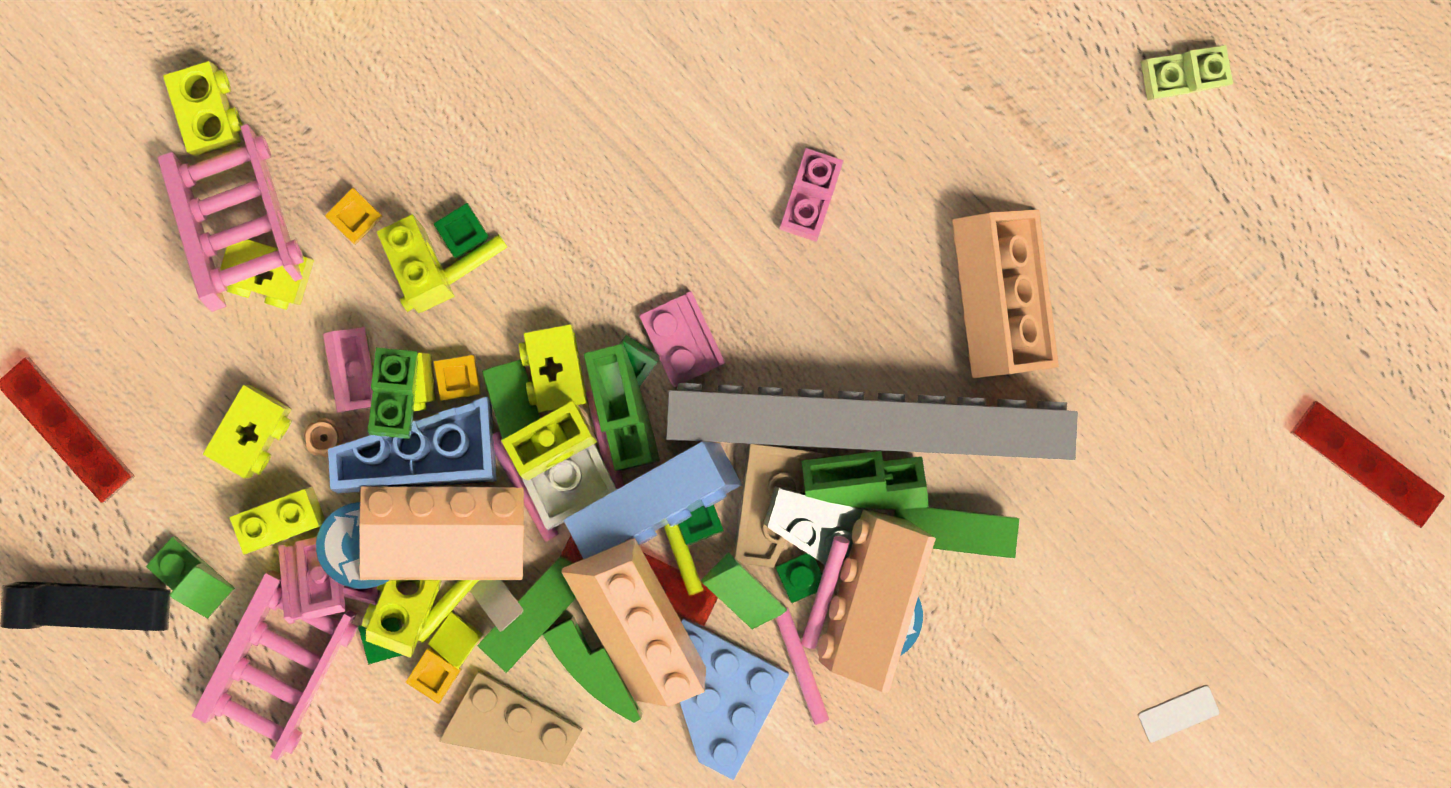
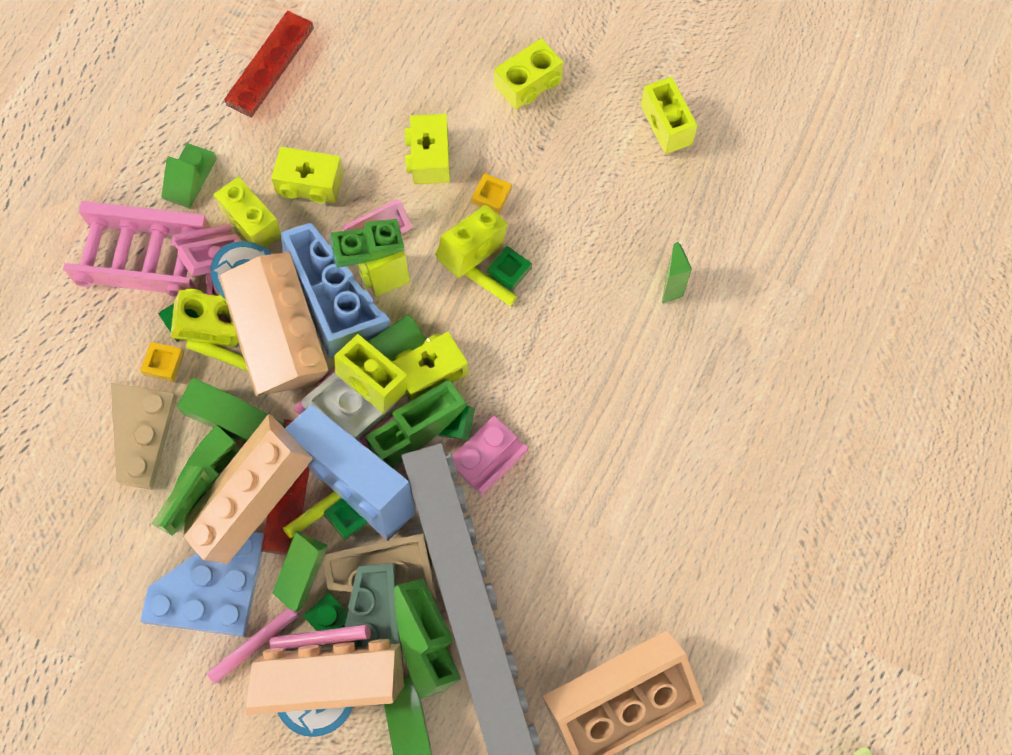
camera: 70 degrees right, 20 degrees down
(84, 606) = (143, 108): black beam -> none
(191, 211) = (454, 83): bright pink fence -> none
(315, 430) = (323, 220): light nougat plate -> none
(455, 640) = (195, 367): neon yellow slope -> none
(457, 377) = (398, 301): yellow plate -> none
(497, 602) = (232, 384): white sticker -> none
(548, 39) = (676, 274): none -> bright green slope
(620, 699) = (181, 500): none -> bright green slope
(811, 194) = (640, 513): bright pink slope -> none

